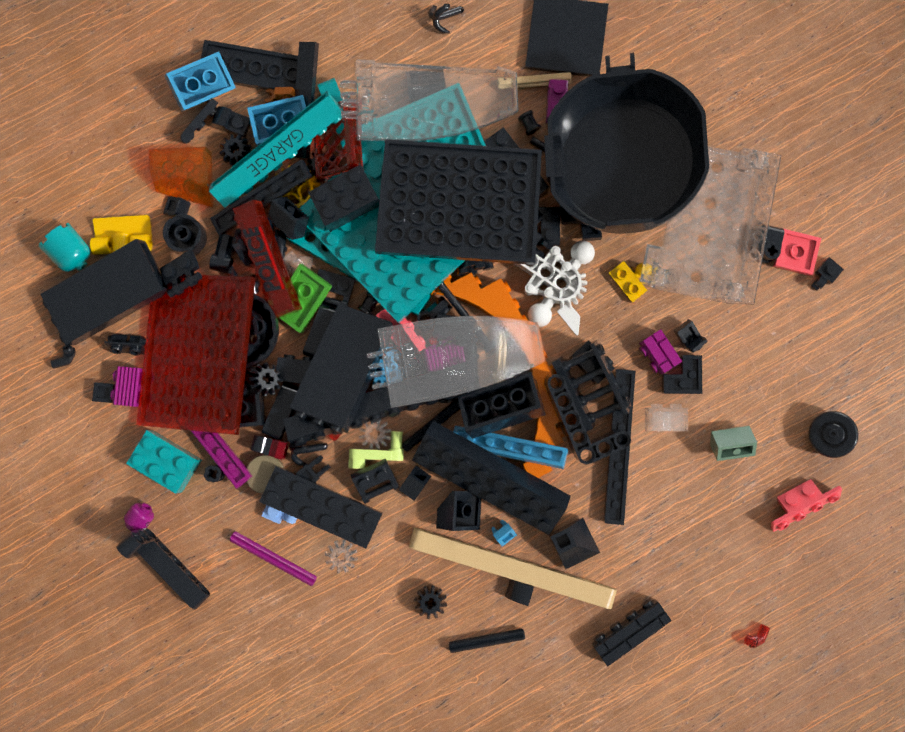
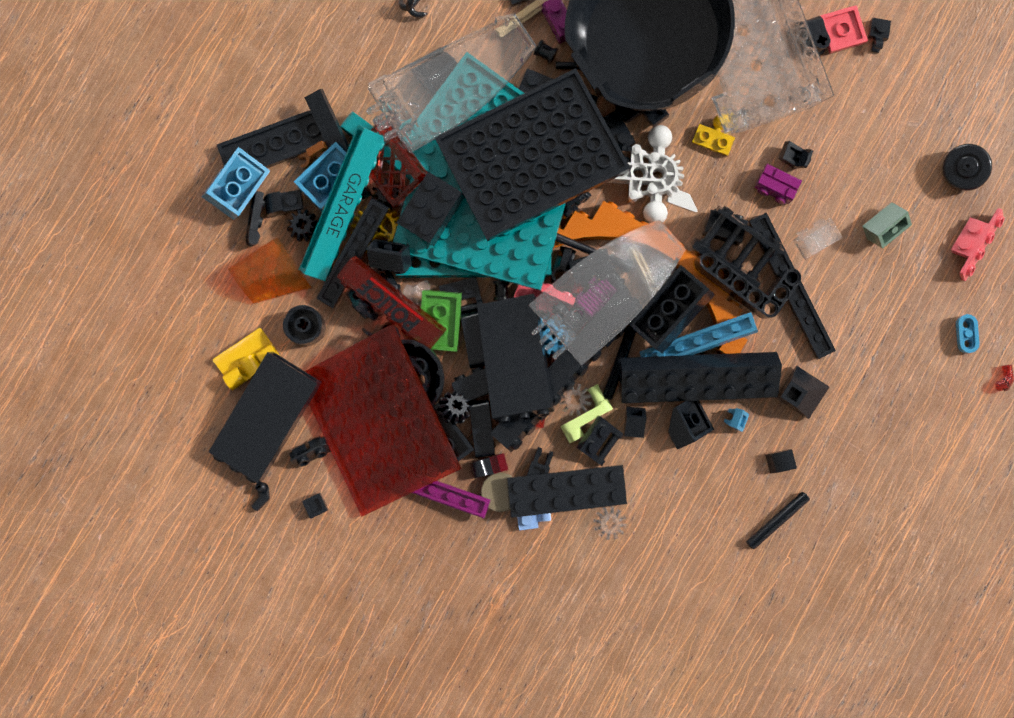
camera: 30 degrees left, 0 degrees up
(66, 248) = (207, 399): teal cylinder -> none
(127, 386) = (333, 487): magenta brick -> none
(138, 516) = (413, 595): magenta head -> none
(164, 461) = (405, 533): teal brick -> none
(166, 564) = (464, 622): black beam -> none
(176, 206) = (279, 306): black slope -> none
(180, 268) = (319, 356): black plate -> none
(210, 470) = (461, 516): black bush -> none
(222, 258) = (349, 327): black piece -> none
(273, 558) = (551, 561): magenta axle -> none
(305, 449) = (521, 450): black piece -> none
(435, 606) = (716, 518): black gear -> none
(512, 568) = (762, 445): tan beam -> none
(631, 632) = (896, 438): black brick -> none
(688, 381) = (816, 194): black plate -> none
(749, 579) = (968, 334): none -> dark azure plate

